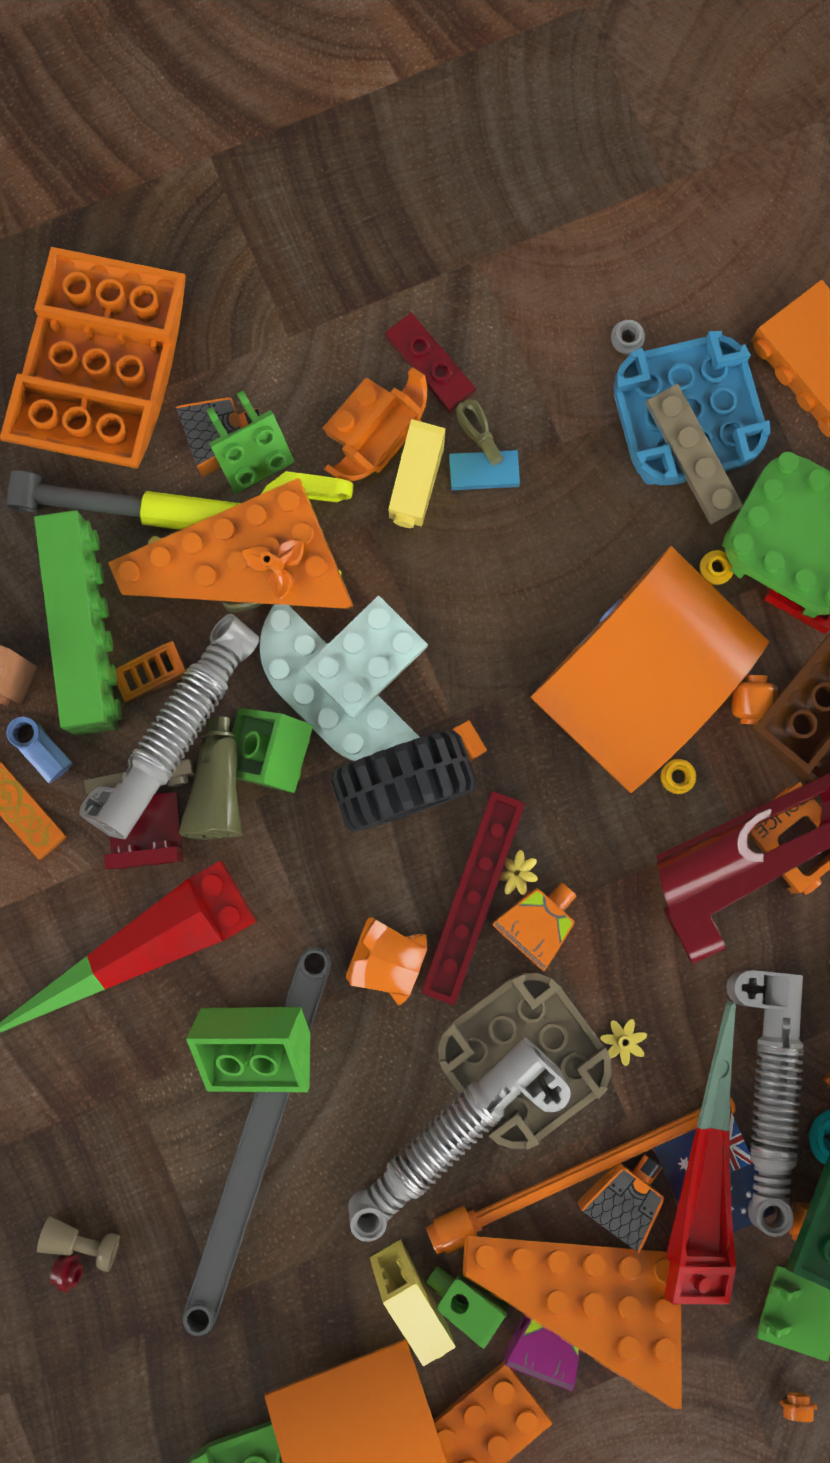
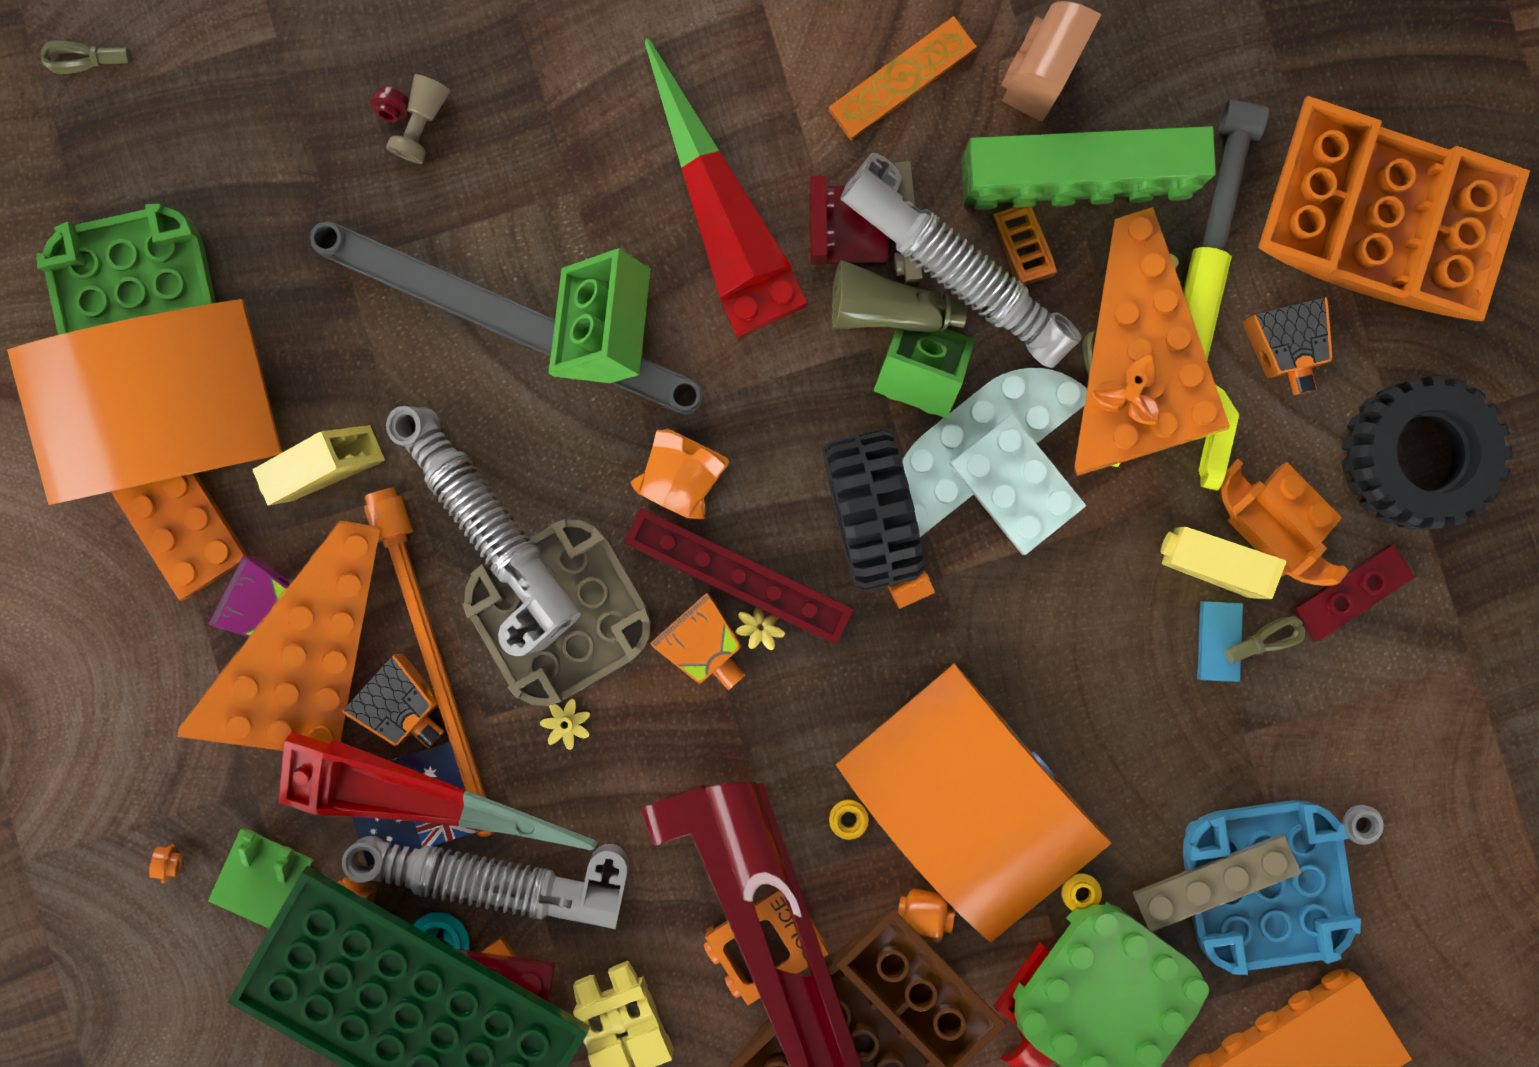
camera: 100 degrees right, 5 degrees up
(40, 750) = (949, 117): medium blue piece -> none
(251, 451) = (1267, 379): bright green plate -> none
(300, 270) = (1475, 443): none -> black tyre
(476, 1319) = (294, 528): bright green torso -> none

